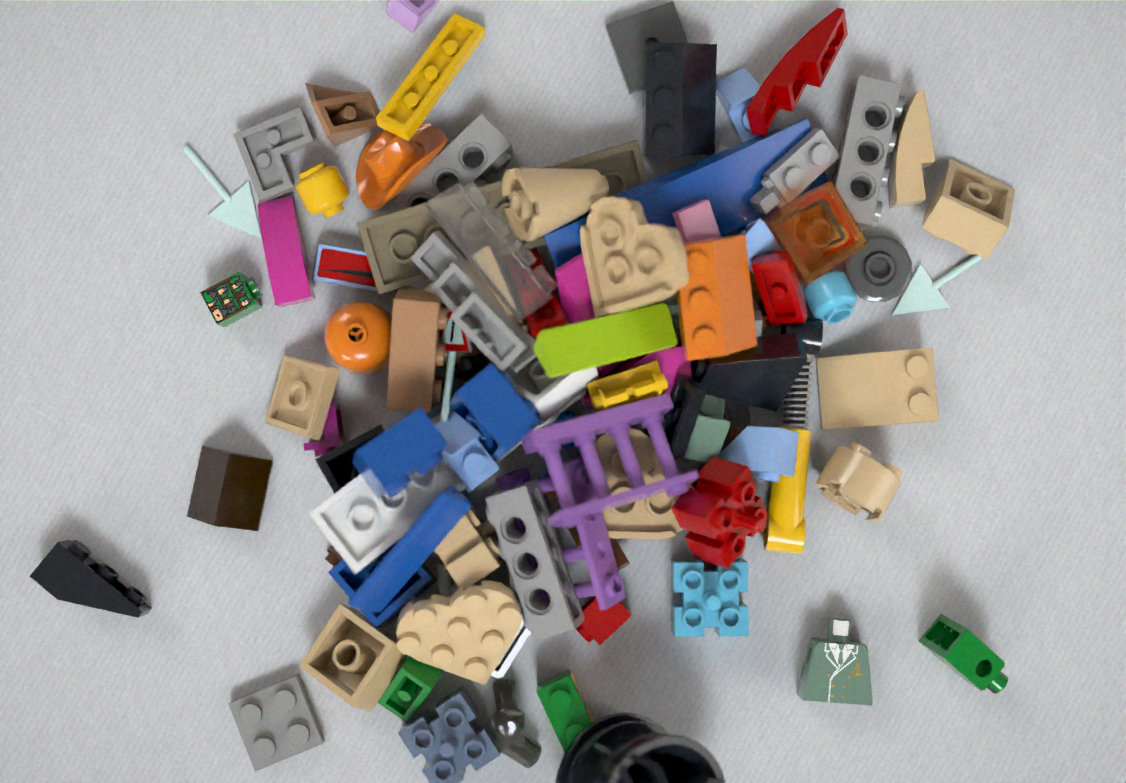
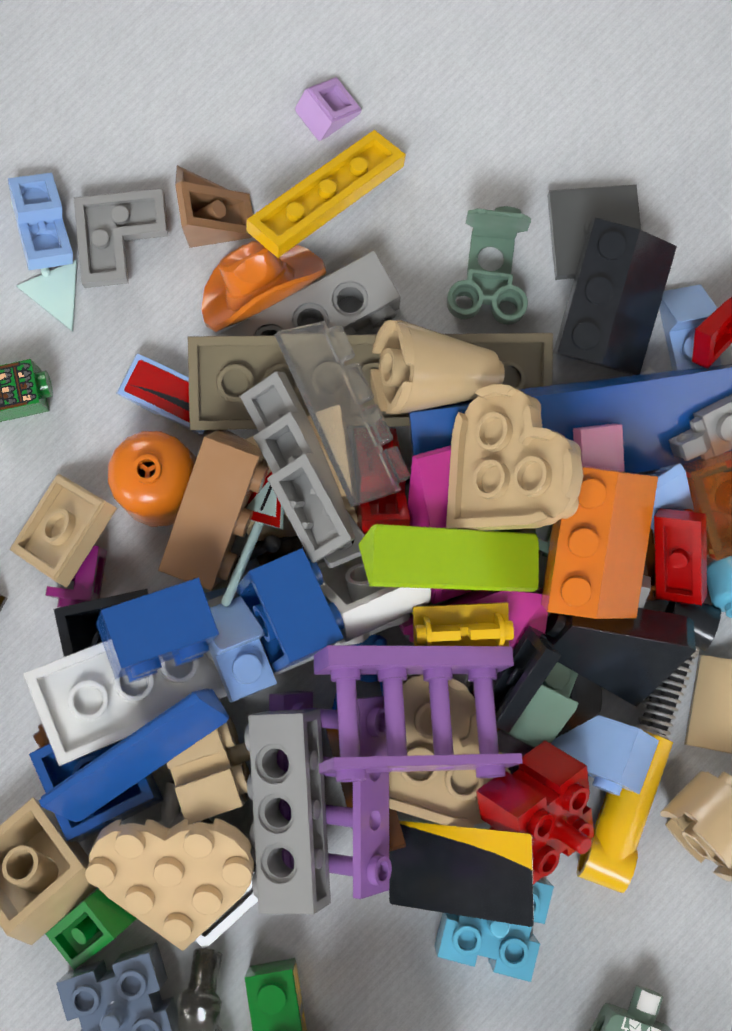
camera: 15 degrees right, 5 degrees down
(211, 159) = (40, 221): none -> light blue slope
(285, 252) = (94, 354): dark pink slope -> none
(322, 190) = (159, 291): yellow head -> none
(578, 114) = (497, 230): none -> sand green piece
(602, 623) = (350, 914): red brick -> none
(676, 569) = (464, 872): none -> black sticker

